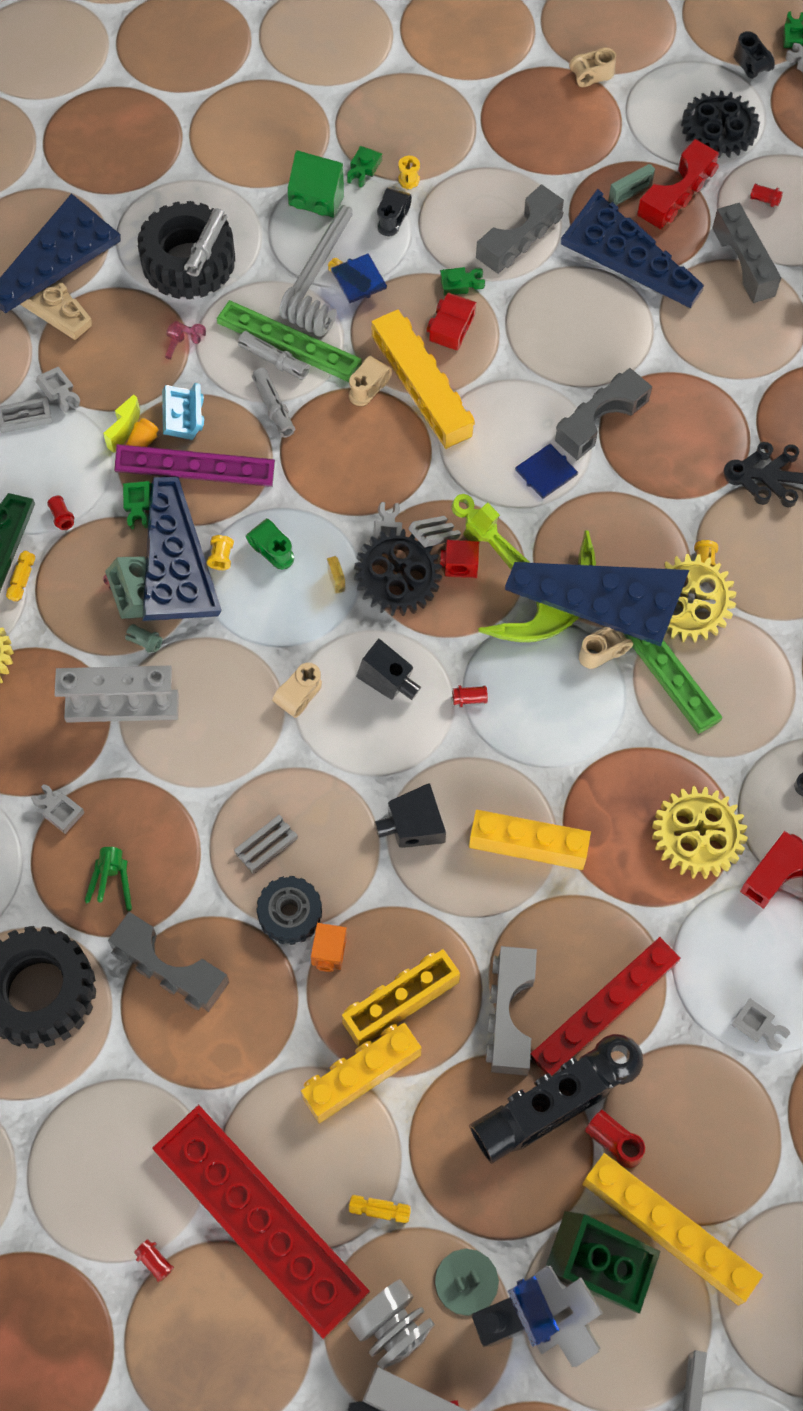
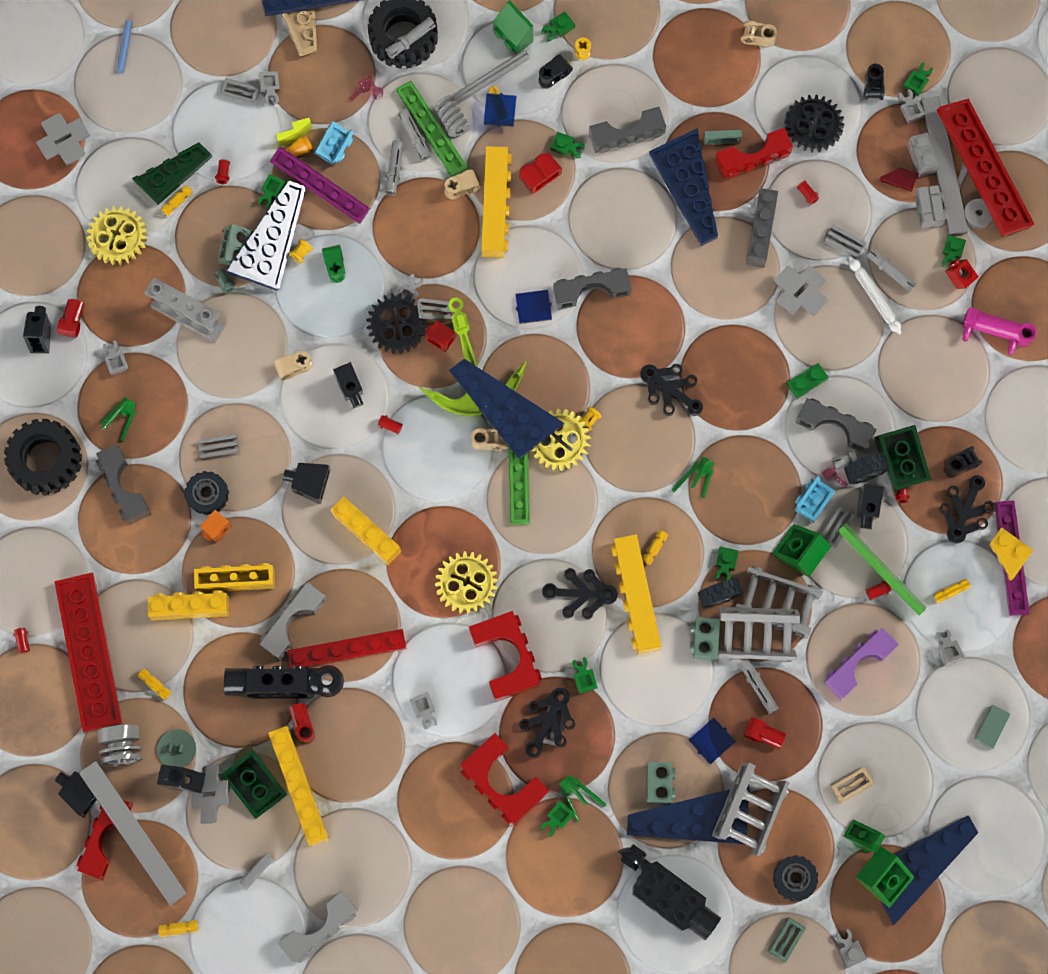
camera: 30 degrees right, 10 degrees up
(336, 574) = (359, 304): clear yellow tile -> none
(533, 1311) = (194, 782): clear blue piece -> none

